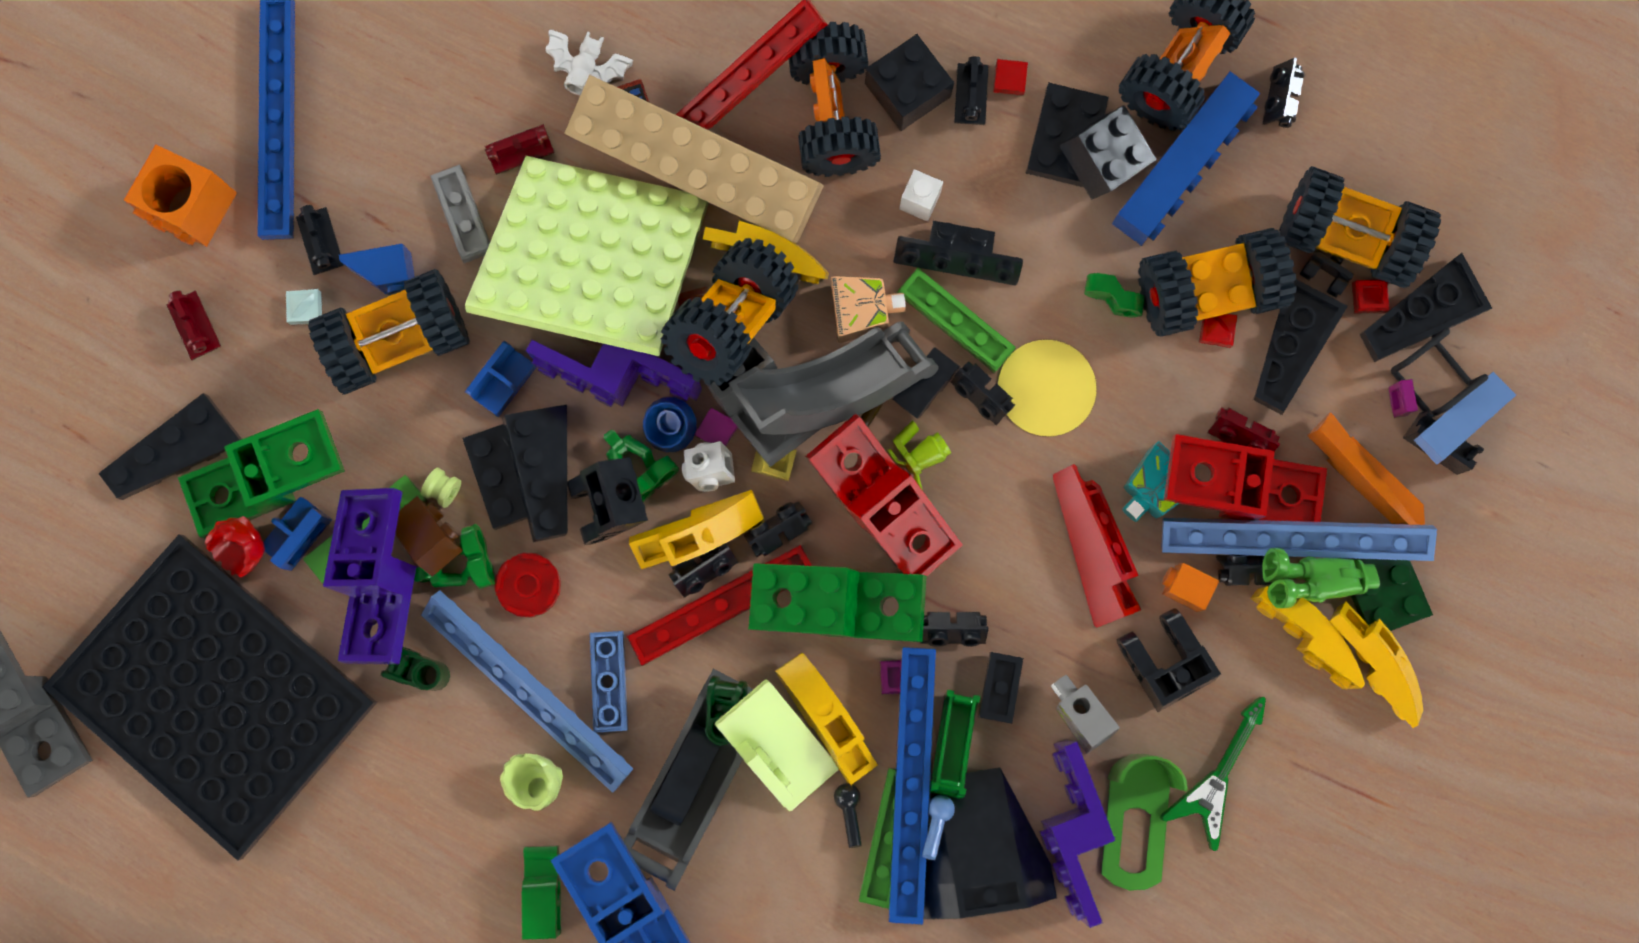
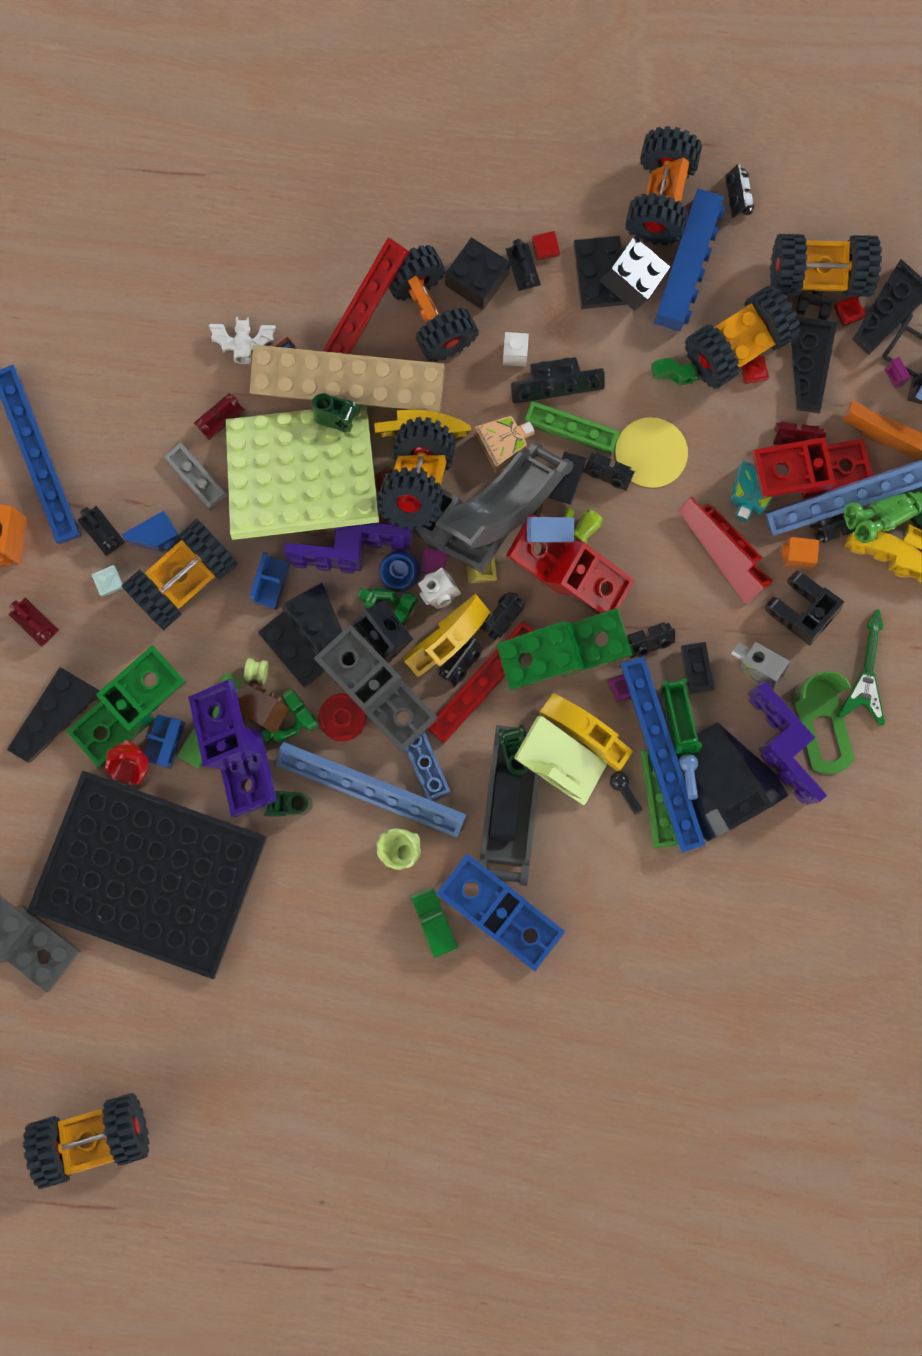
camera: 20 degrees left, 0 degrees up
(577, 566) = (376, 688): none -> dark grey bracket
(660, 195) = (333, 412): none -> dark green piece
(874, 443) = (550, 529): none -> medium blue tile

